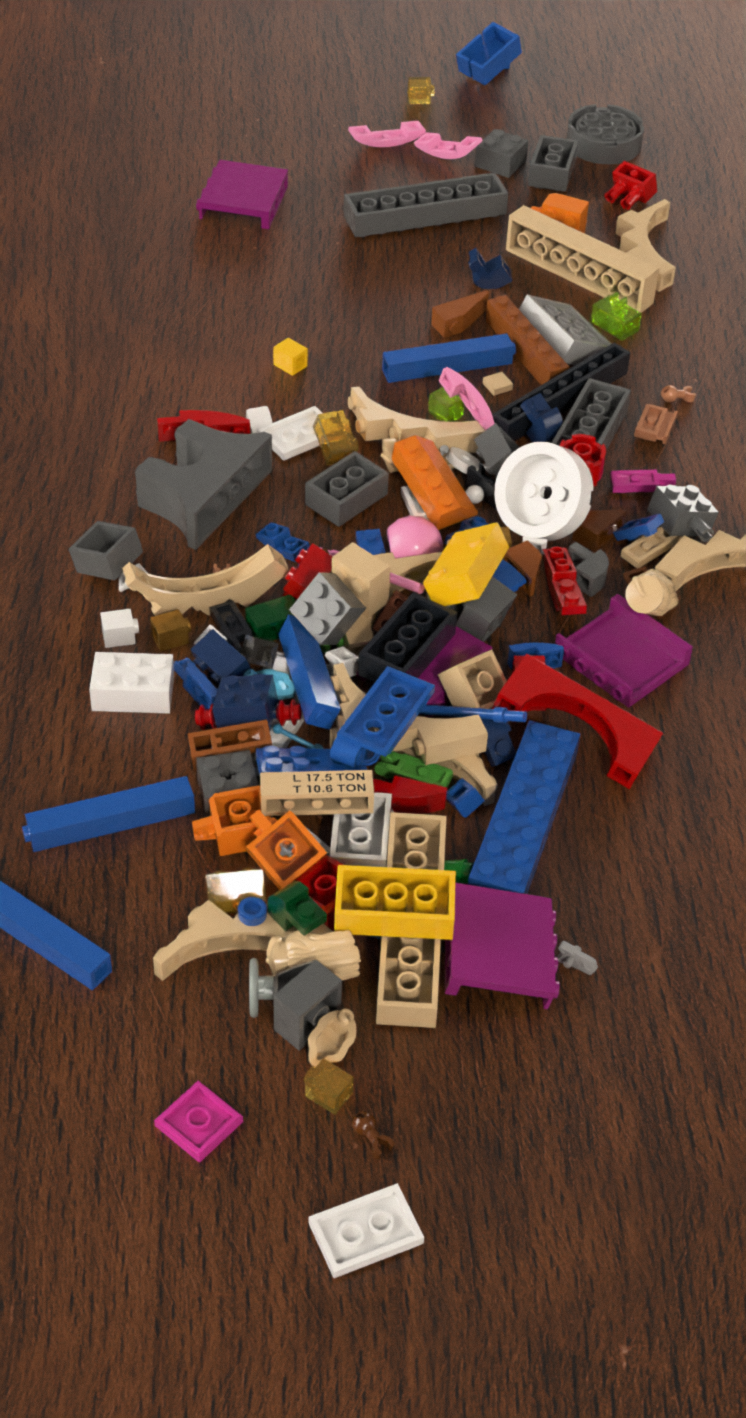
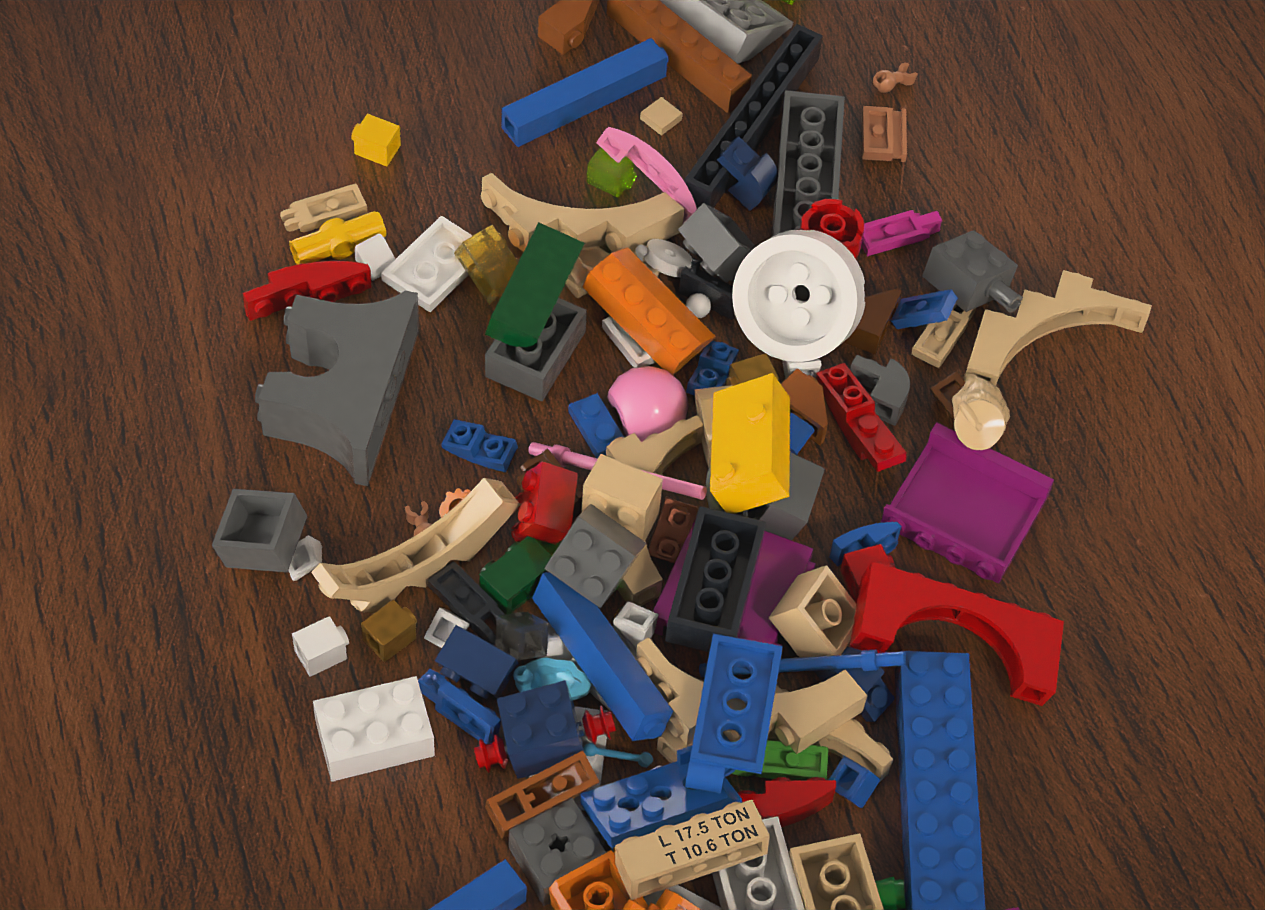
camera: 20 degrees left, 10 degrees up
(236, 388) = (316, 210): none -> tan hinge
(238, 402) = (336, 238): none -> yellow piece
(353, 446) = (534, 287): none -> dark green brick

